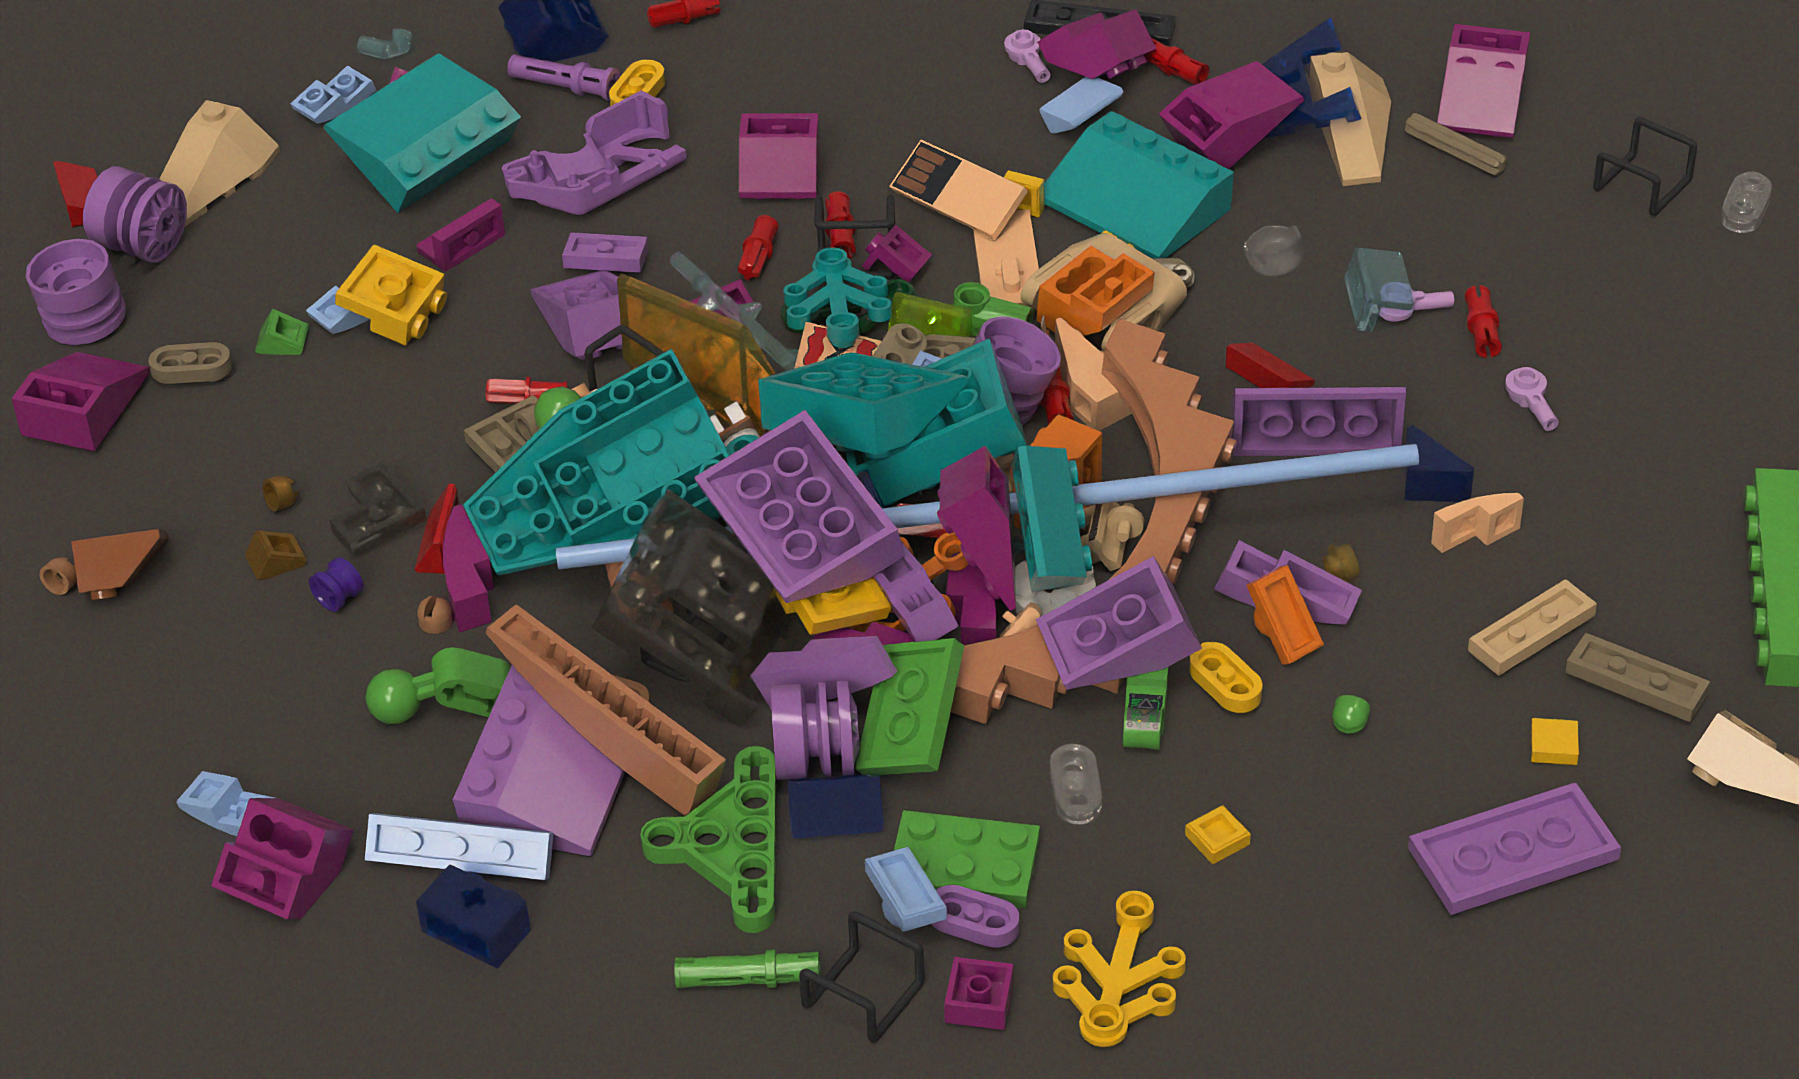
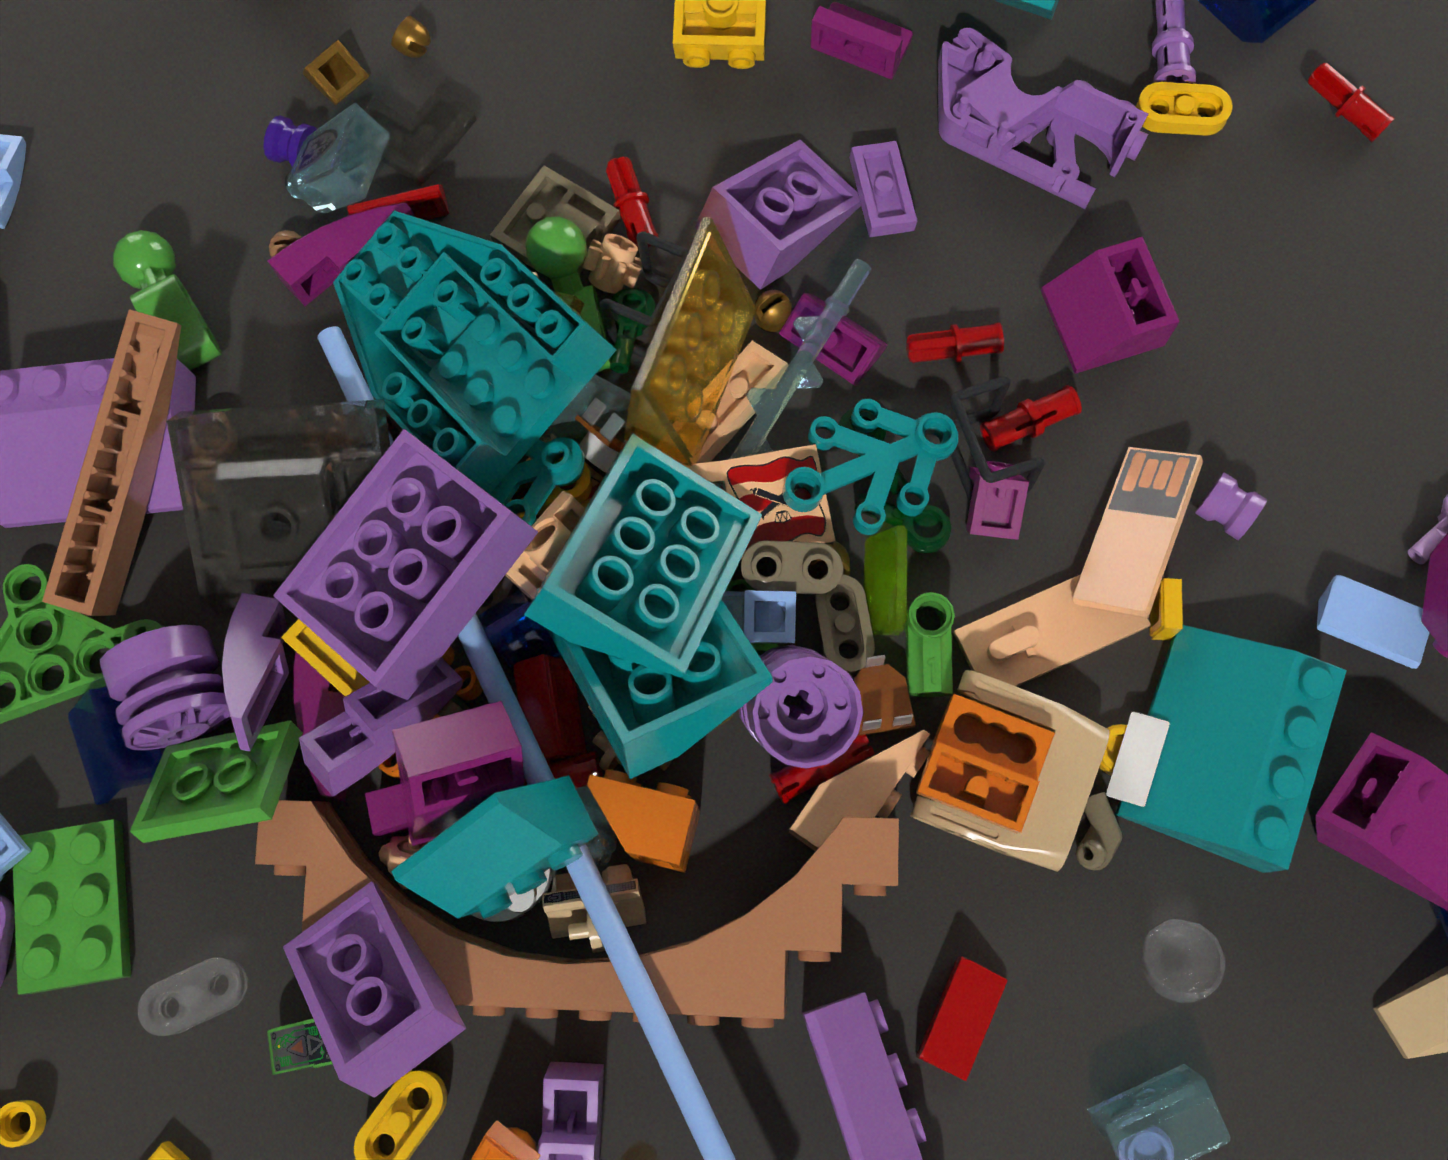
camera: 75 degrees right, 30 degrees up
(388, 542) = (338, 161): none -> clear light blue torso
(967, 142) = (1231, 506): none -> medium lavender wheel
(1125, 231) = (1137, 759): none -> white sticker

